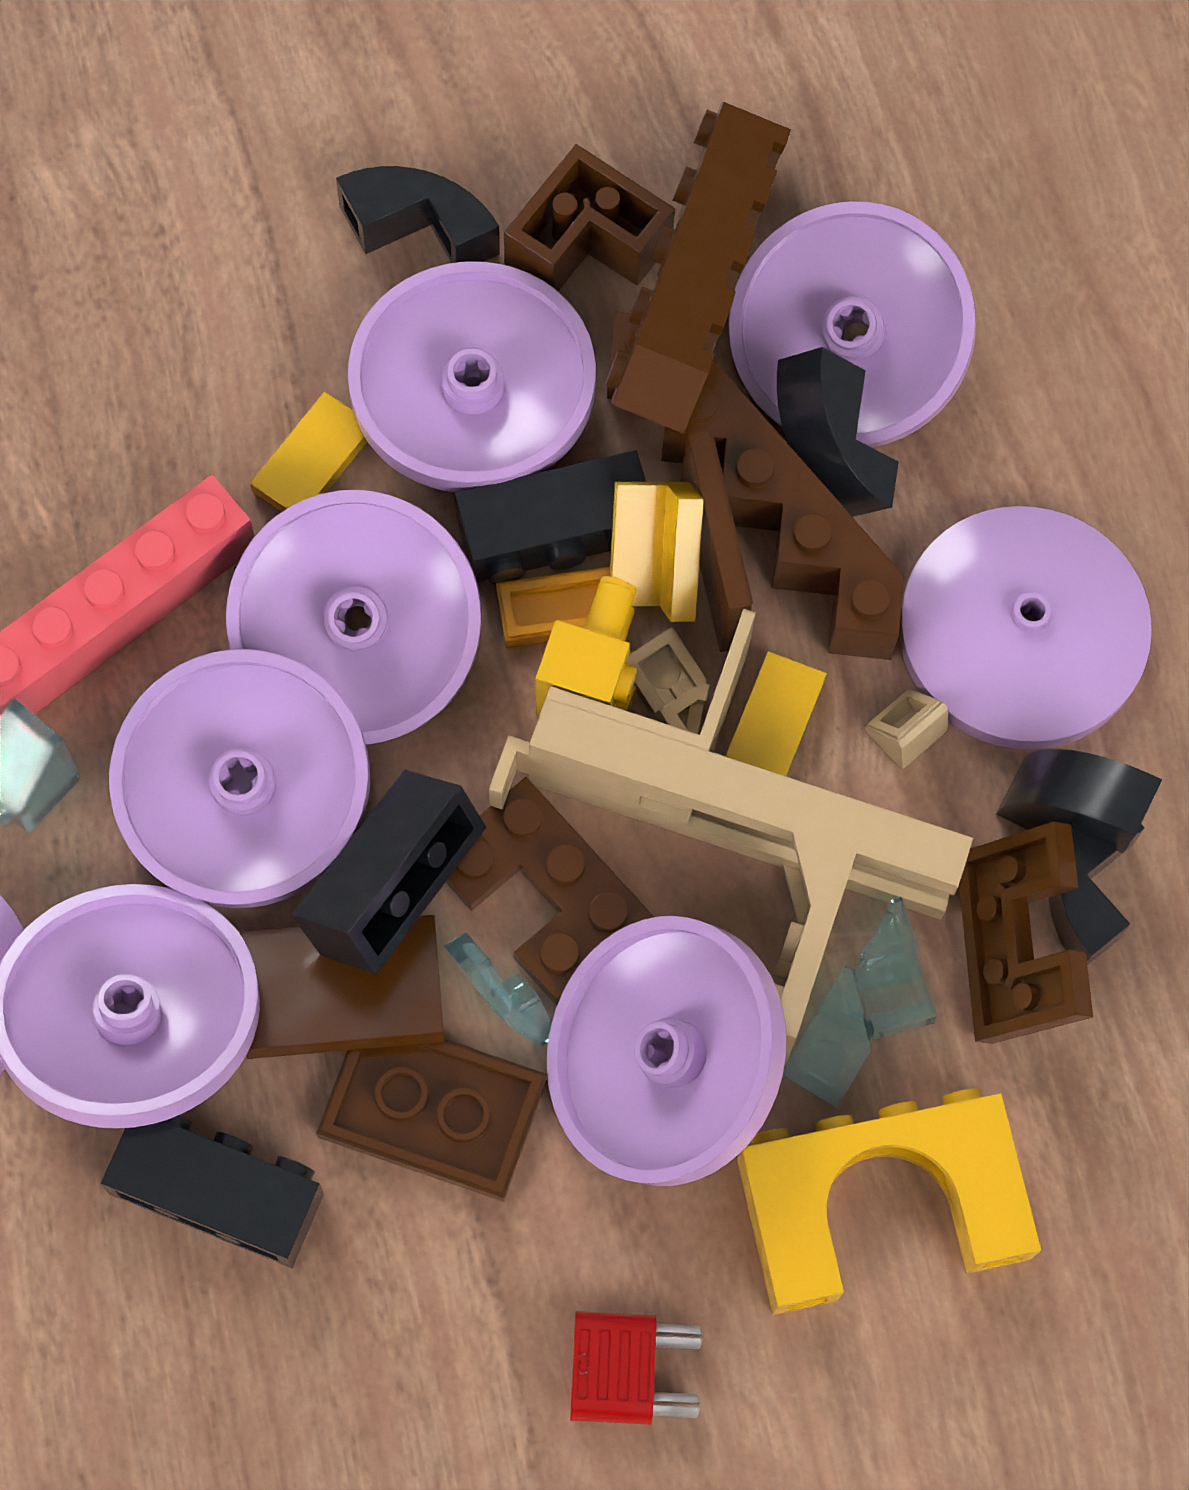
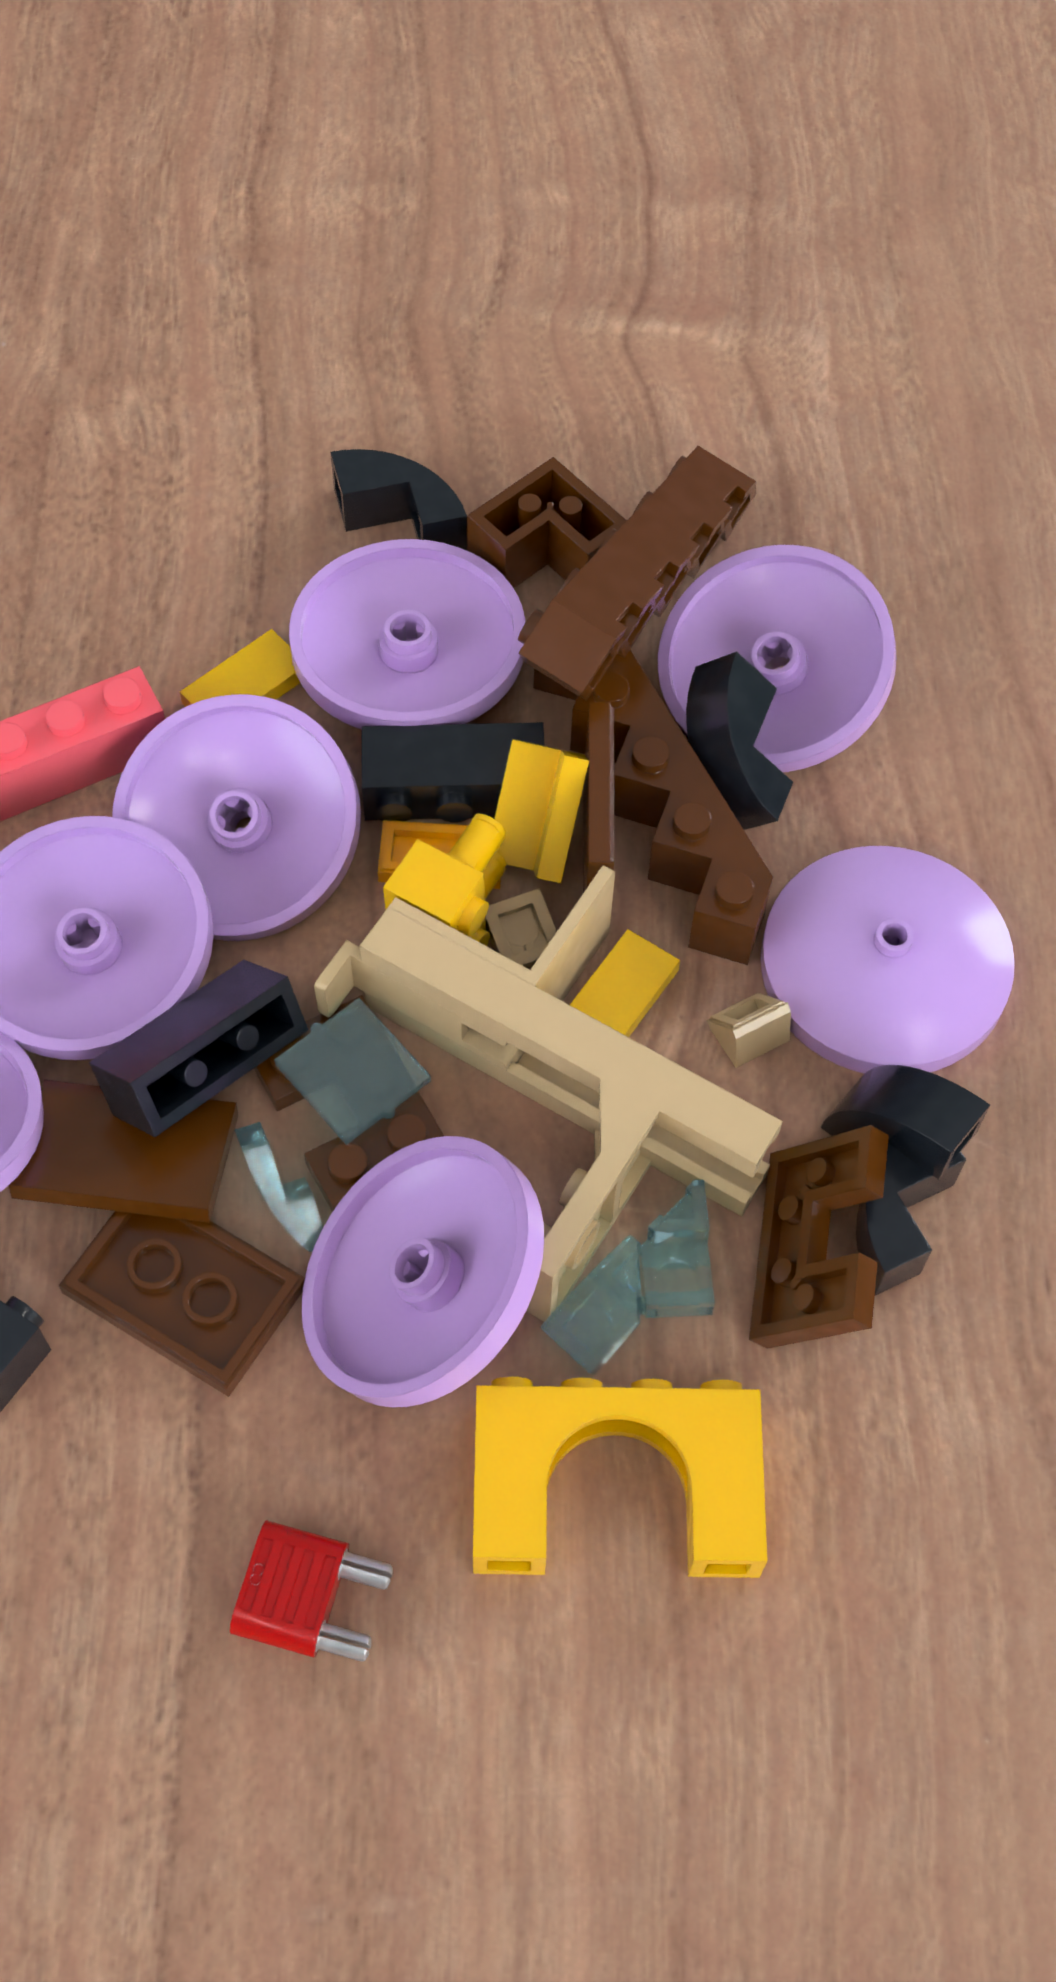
camera: 15 degrees right, 10 degrees down
(541, 860) = (352, 1070): none -> clear light blue piece

